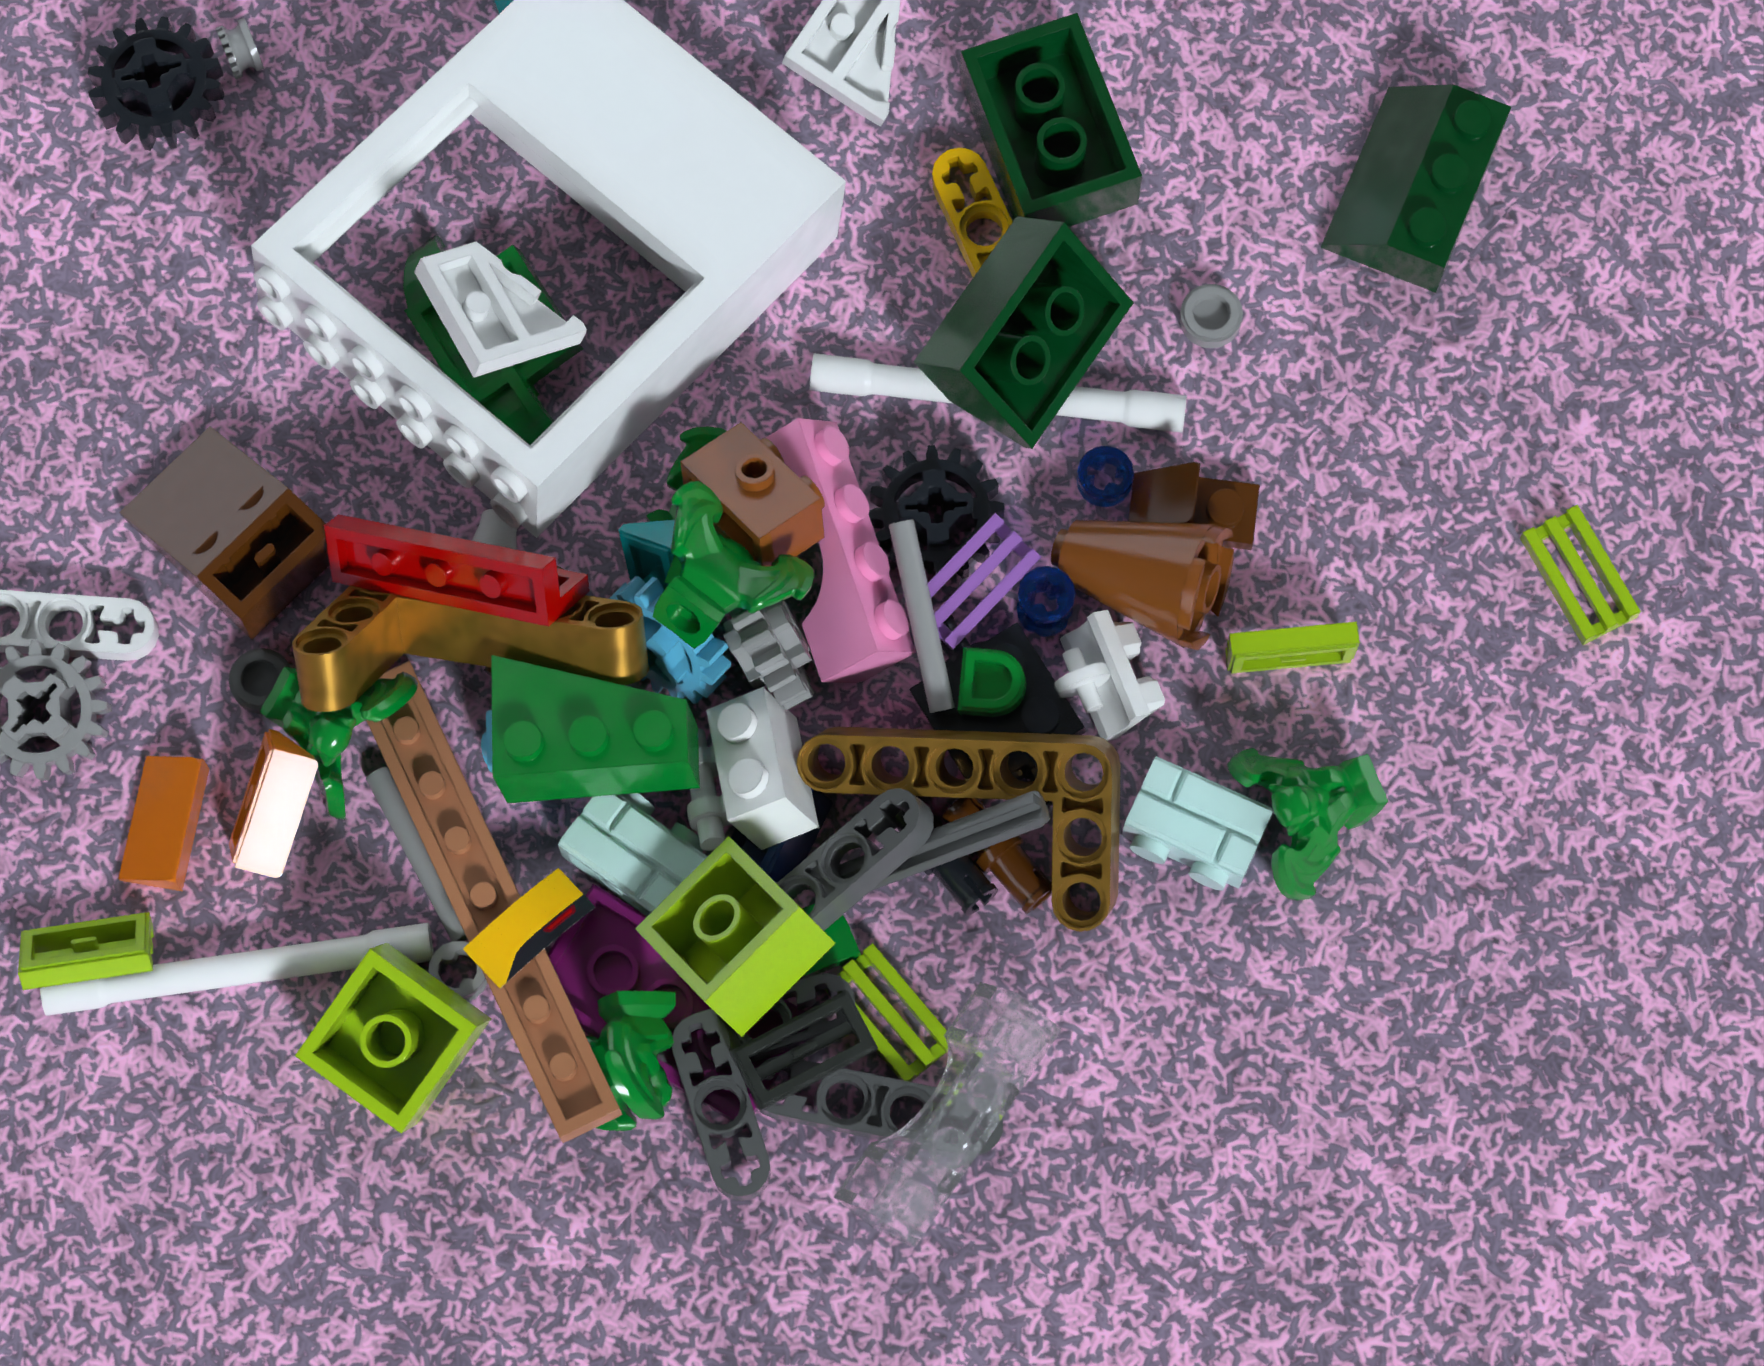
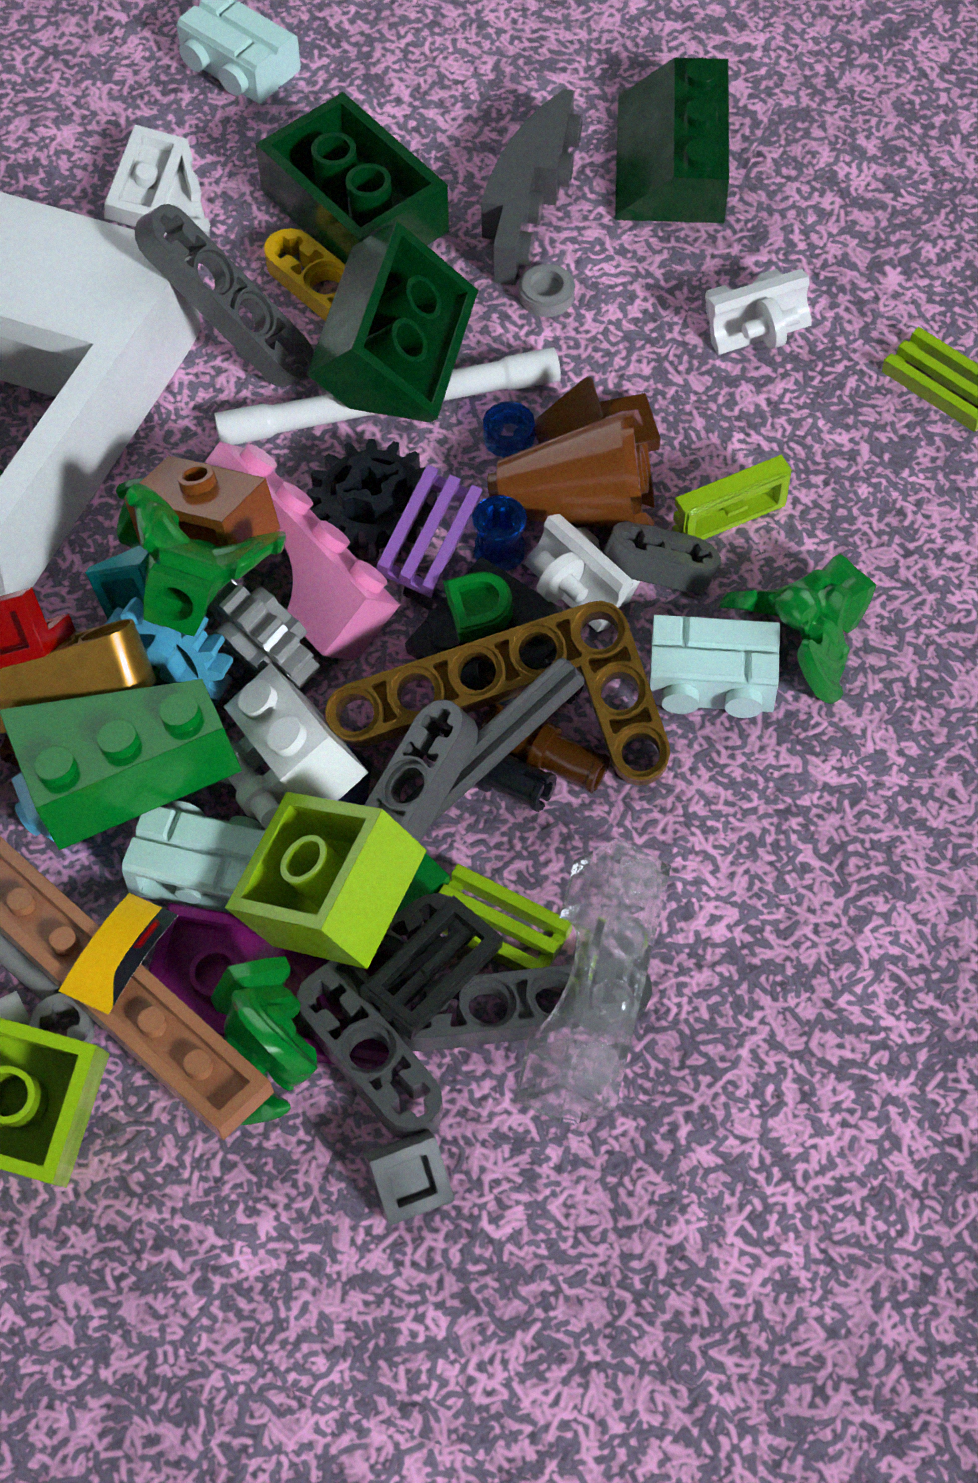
camera: 20 degrees left, 15 degrees down
(715, 1233) = (409, 1177): none -> dark grey plate
(866, 241) = (285, 352): none -> dark grey beam
(921, 616) = (394, 566): light grey bar -> none
(1194, 687) = (662, 556): none -> dark grey beam
(1248, 163) = (525, 179): none -> dark grey slope
(1417, 431) = (758, 311): none -> white hips

